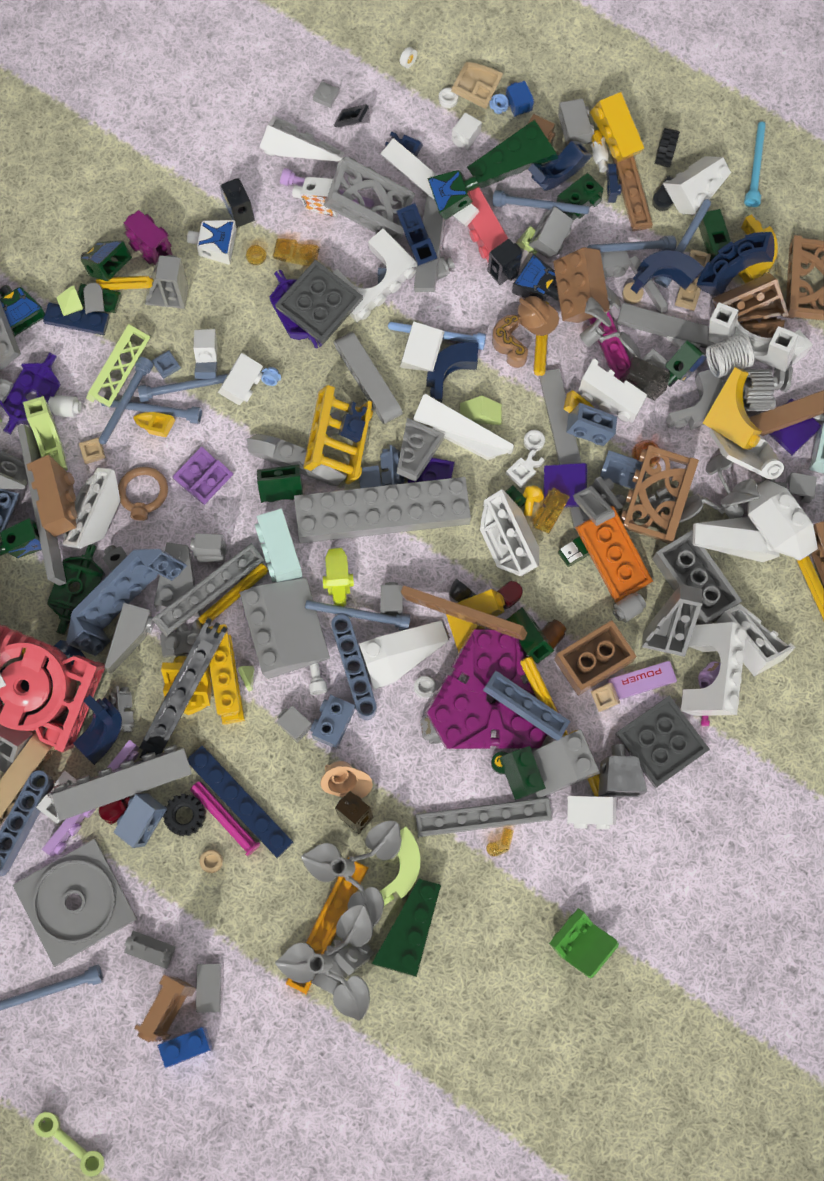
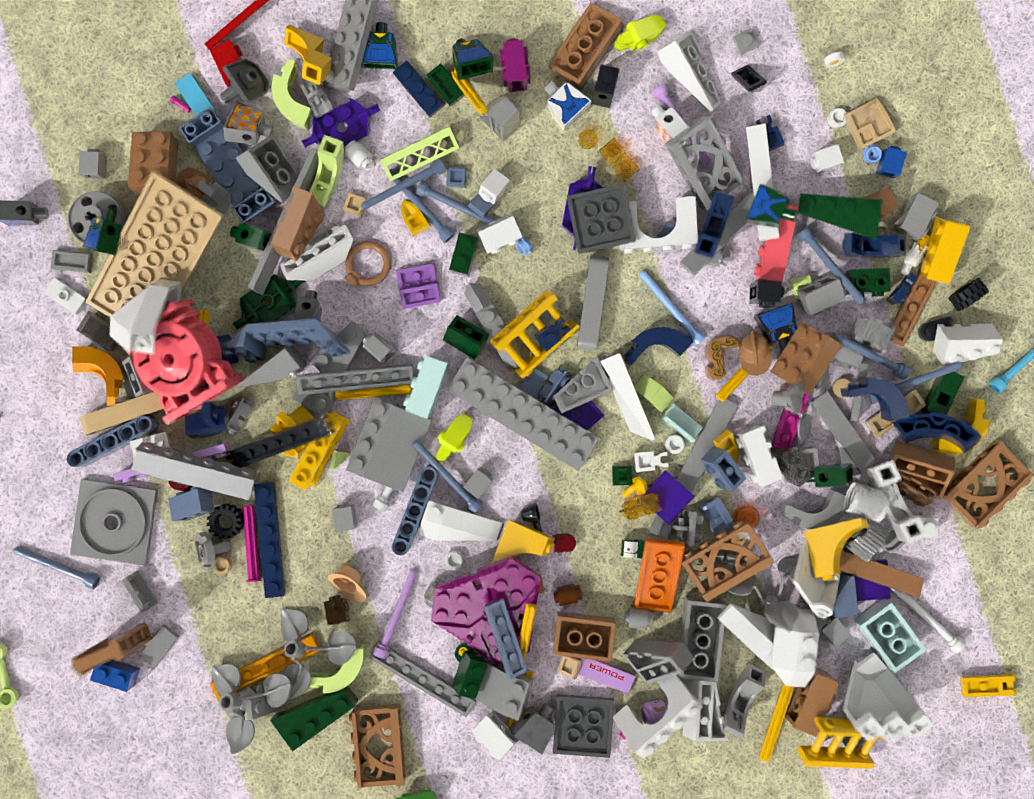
camera: 40 degrees right, 15 degrees up
(69, 301) = (420, 73): yellowish green slope -> none
(93, 298) = (440, 83): light grey piece -> none
(187, 851) = (206, 550): none -> light grey tile
(195, 185) = (586, 45): none -> medium nougat slope
(223, 418) = (463, 254): none -> dark green brick
(233, 145) = (640, 33): none -> neon yellow hinge
(333, 721) = (371, 537): sand blue brick -> none
(422, 347) = (647, 314): white slope -> none
(424, 815) = (382, 649): none -> lavender piece
(464, 613) = (515, 539): medium nougat tile -> none
(501, 846) = (418, 706): clear yellow arm -> none
(508, 535) = (596, 504): white wedge -> none
(524, 917) = (395, 766): none -> medium nougat fence
(525, 418) = (681, 423): none -> light aqua panel
(535, 642) = (551, 587): dark green brick -> none
(594, 505) = (671, 534): light grey tile -> none
(617, 227) = (872, 332): none -> light grey brick
(774, 601) = (745, 690): none -> light grey arch
(786, 451) = (846, 598): none -> sand blue slope

